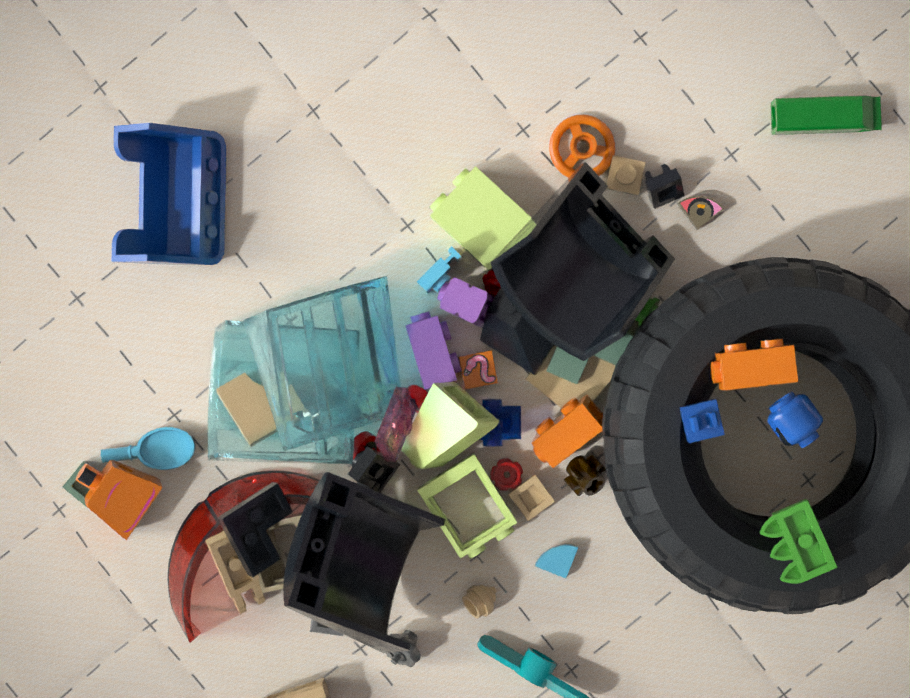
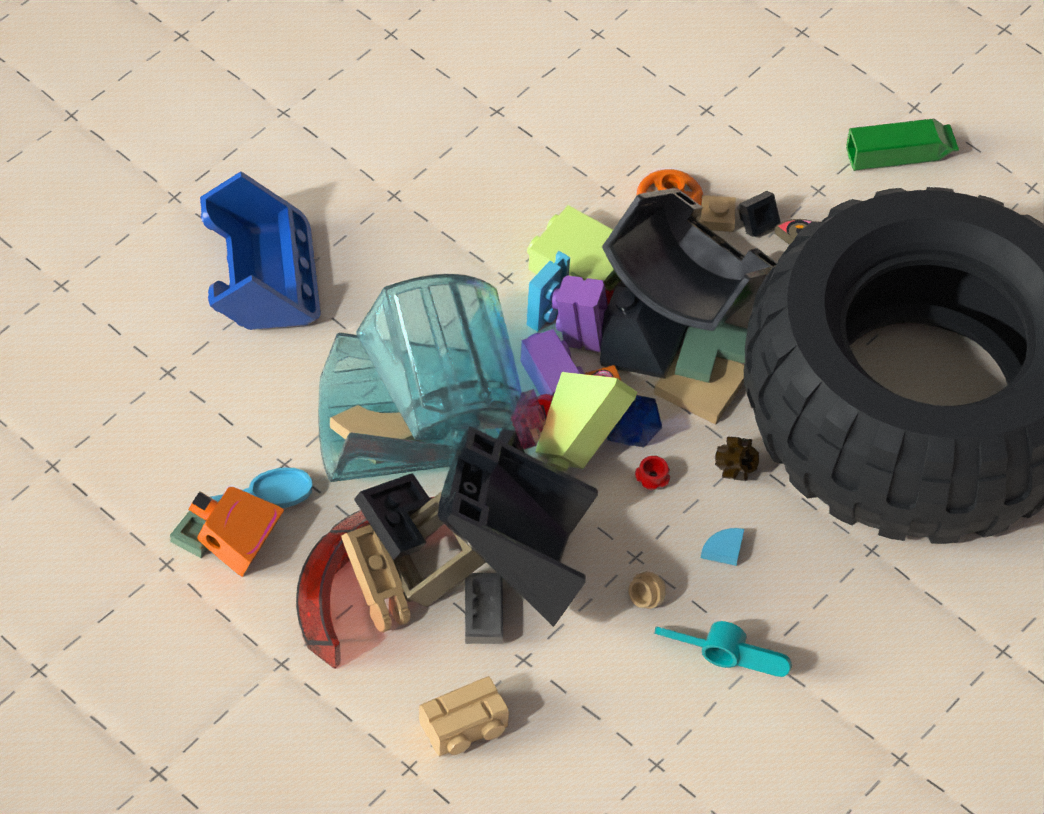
camera: 10 degrees left, 35 degrees down
(406, 658) = (571, 644): dark grey piece -> none
(476, 544) = (617, 463): yellowish green window -> none
(531, 497) = (683, 488): tan plate -> none
(568, 432) = (710, 417): orange brick -> none
(702, 420) = (845, 299): blue tile -> none
(754, 367) = (886, 245): orange brick -> none
(795, 420) = (936, 279): blue head -> none
(801, 543) = (973, 382): bright green plate -> none

